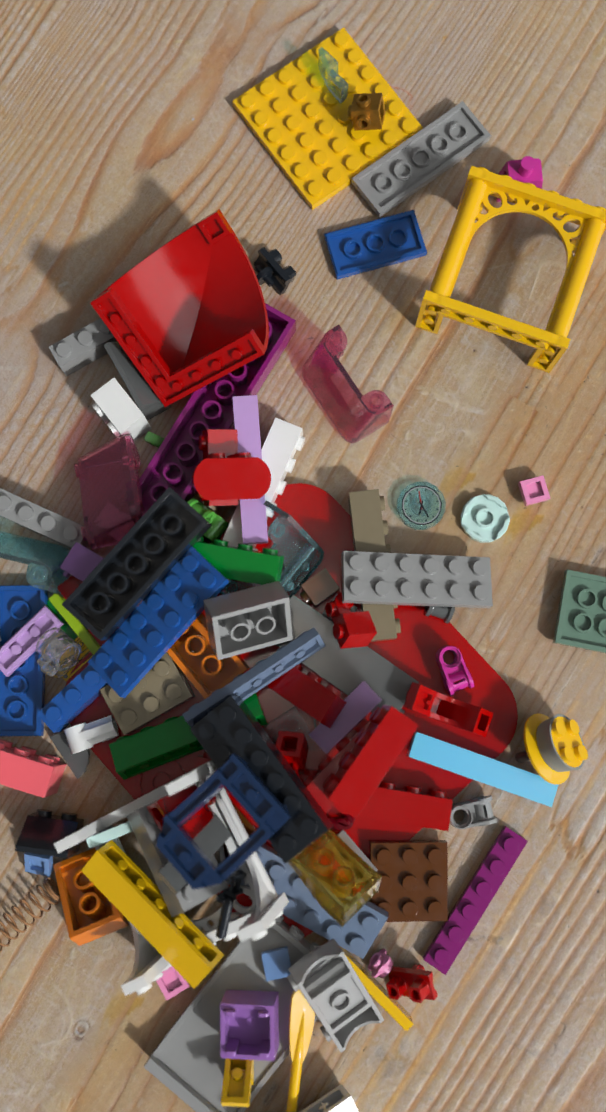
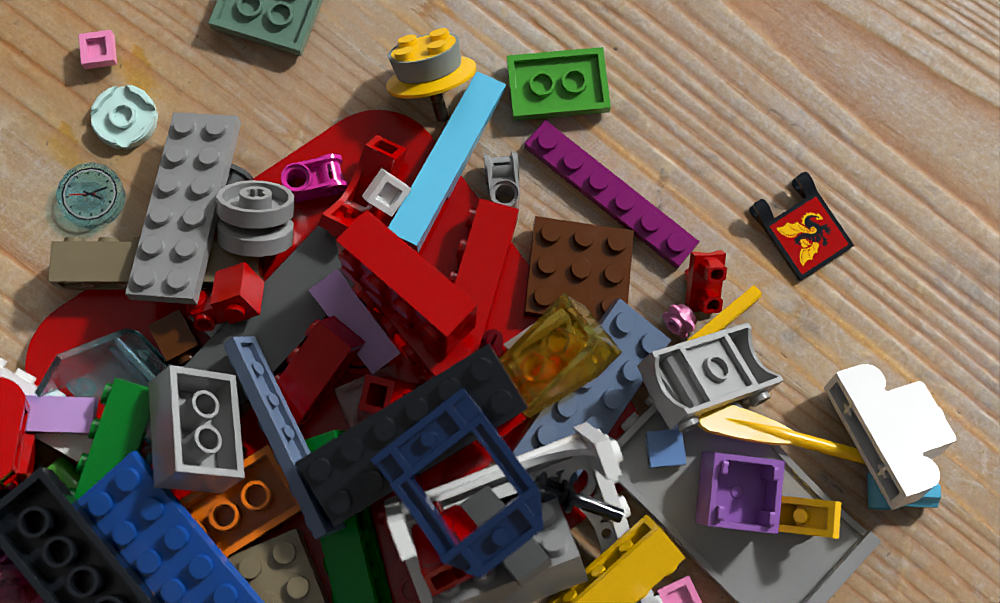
camera: 90 degrees left, 5 degrees down
(413, 633) = (255, 218): none -> light grey wheel
(446, 728) = (386, 192): none -> white plate
(464, 1062) = (805, 233): none -> flag
(559, 848) = (558, 84): none -> bright green plate

